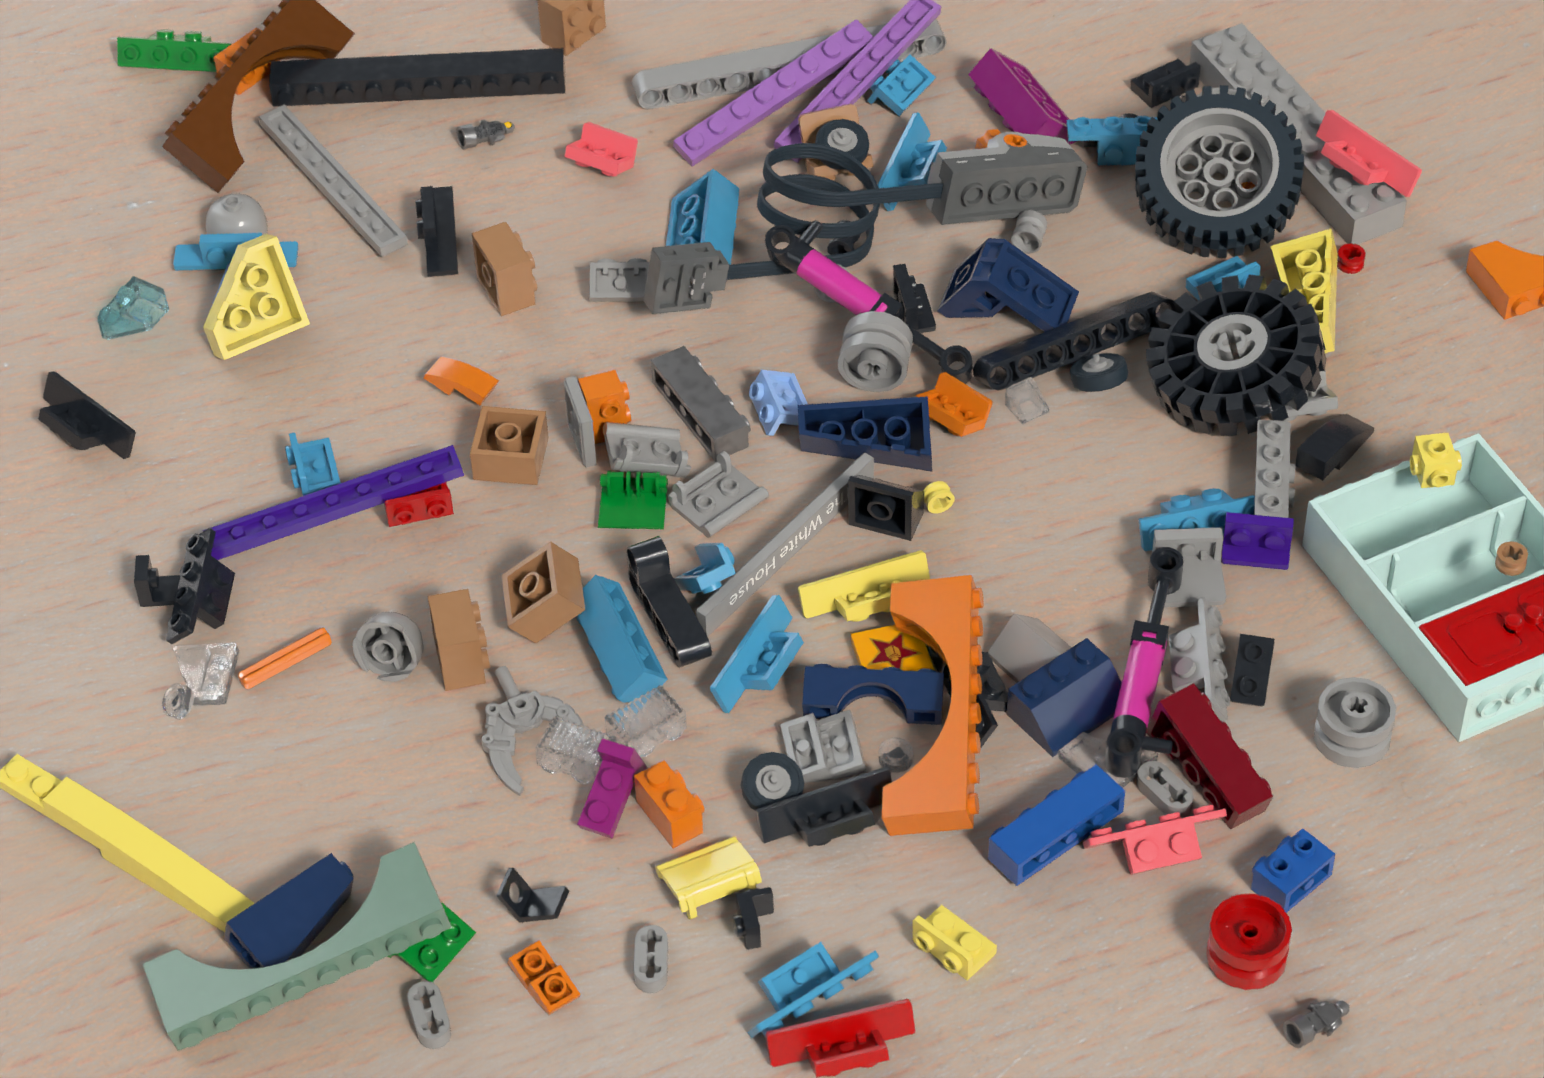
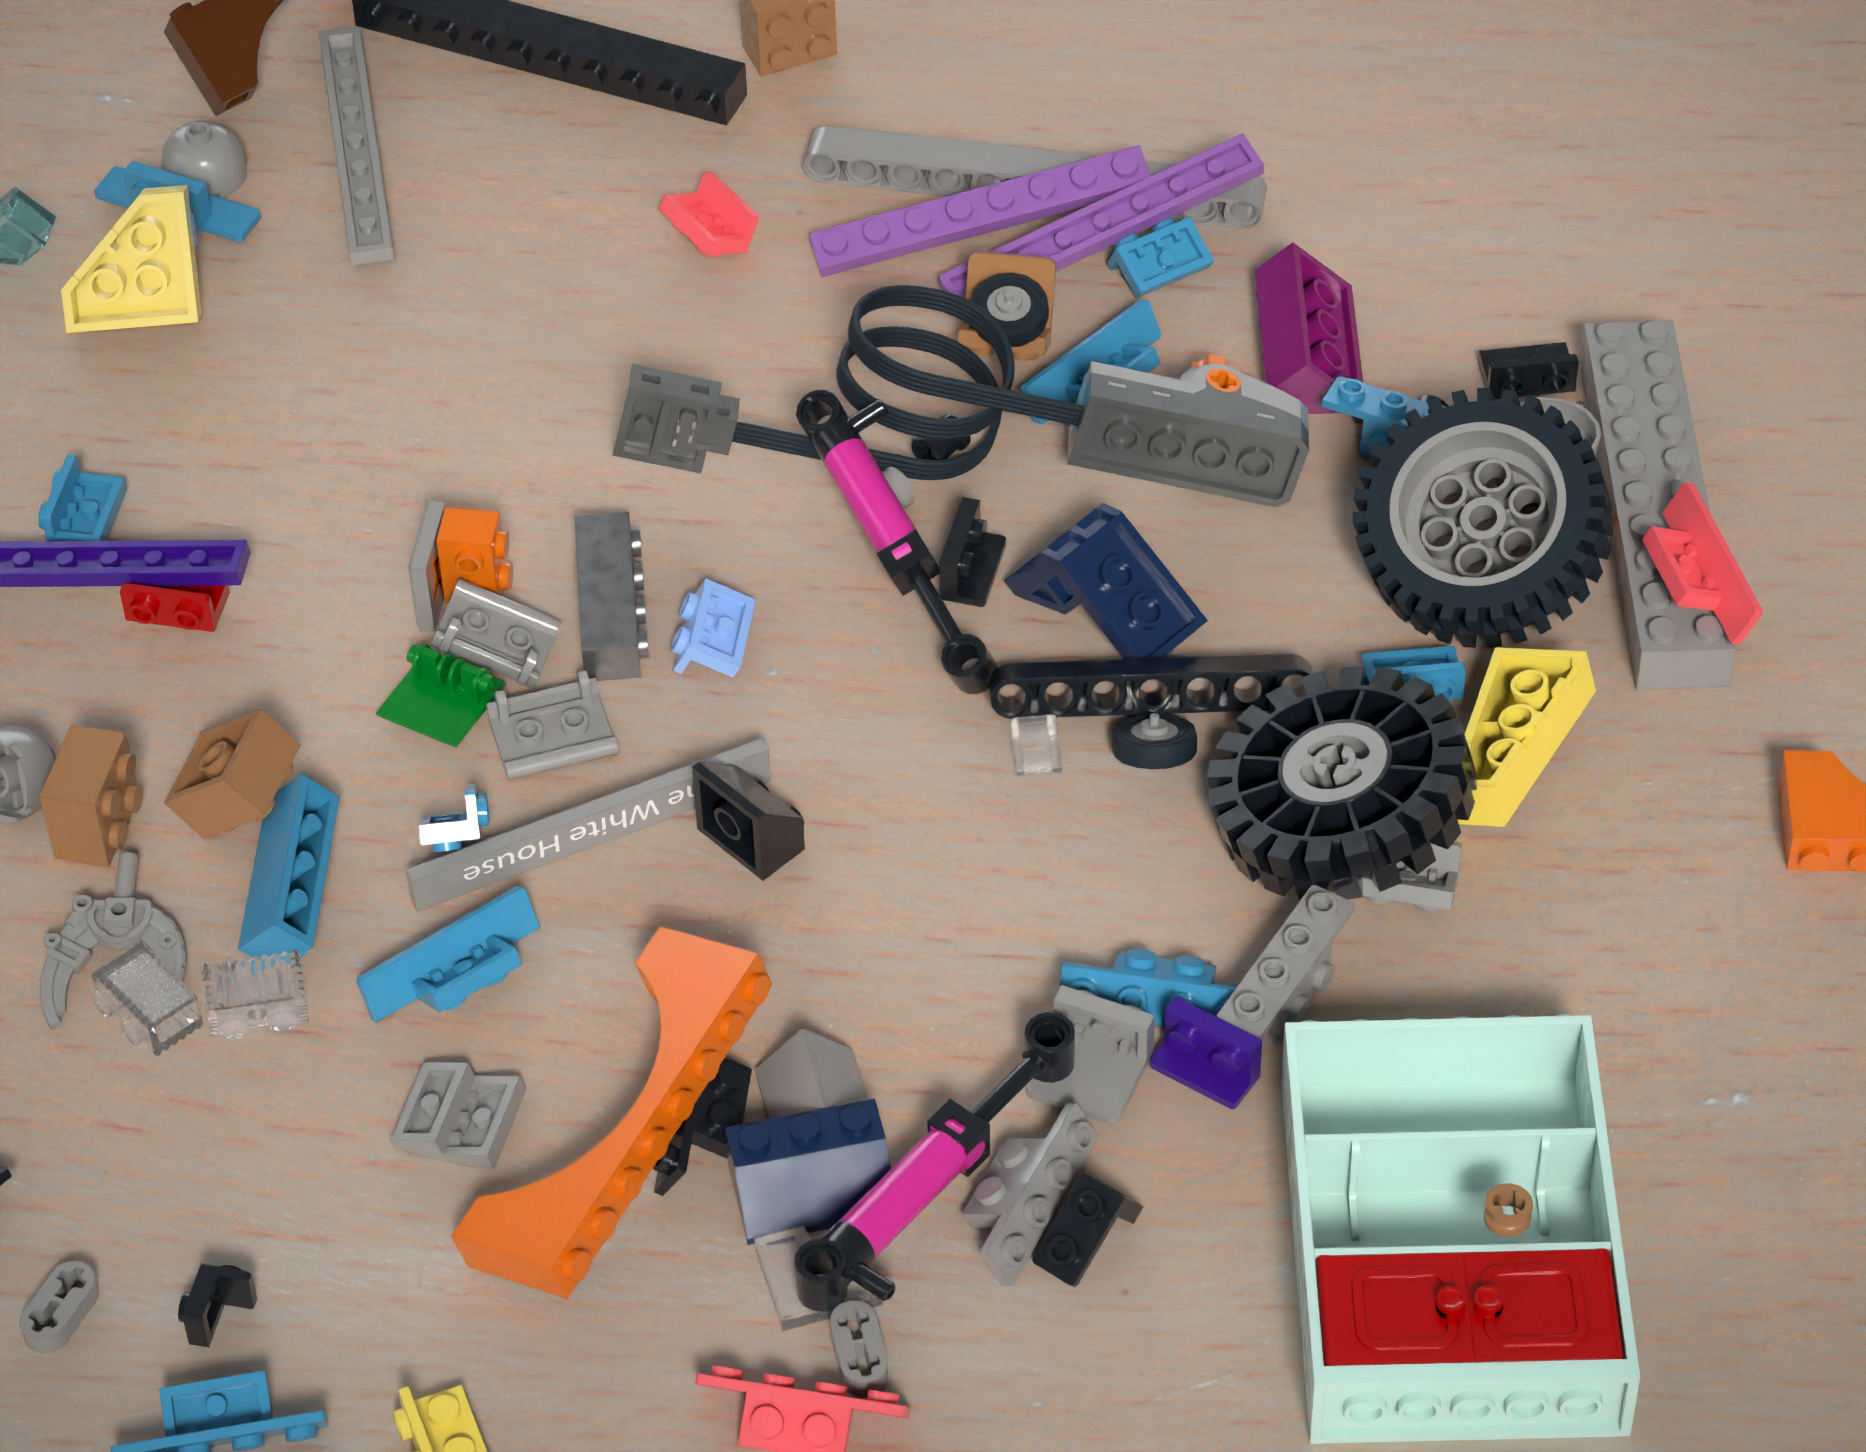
camera: 25 degrees right, 0 degrees up
(438, 230) = (438, 248): black bracket -> none
(470, 381) = (337, 458): orange slope -> none
(487, 131) = (592, 145): flat silver piece -> none
(504, 268) = (475, 331): medium nougat brick -> none
(509, 445) = (328, 566): medium nougat brick -> none
(610, 788) = (152, 1063): magenta bracket -> none
(618, 280) = (599, 392): light grey bracket -> none
(665, 602) = (383, 845): black beam -> none
(669, 803) = (209, 1111): orange brick -> none
(705, 214) = (779, 356): dark azure slope -> none
(709, 874) = (197, 1225): light yellow piece -> none
(771, 779) = (354, 1137): black wheel -> none
(826, 811) = (396, 1200): black bracket -> none
(862, 590) = (629, 918): light yellow bracket -> none
(875, 351) = (866, 606): light grey wheel -> none
(886, 429) = (796, 712): dark blue wedge -> none
(890, 648) = (617, 1028): light orange tile -> none
(896, 754) = (542, 1158): clear tile -> none
(914, 692) = (509, 1042): dark blue arch -> none
(938, 497) = (827, 834): light yellow bush -> none
(957, 406) = (930, 719): orange bracket -> none
(1029, 231) = (1198, 510): light grey wheel -> none
(1056, 824) = (673, 1337): blue brick -> none
(1210, 755) = (936, 1326): dark red wedge -> none
(1332, 445) = (1409, 958): black slope -> none
(1350, 265) = (1619, 694): red bush -> none
(1354, 722) = (1167, 1357): light grey wheel -> none
(1435, 467) = (1483, 1030): light yellow brick -> none

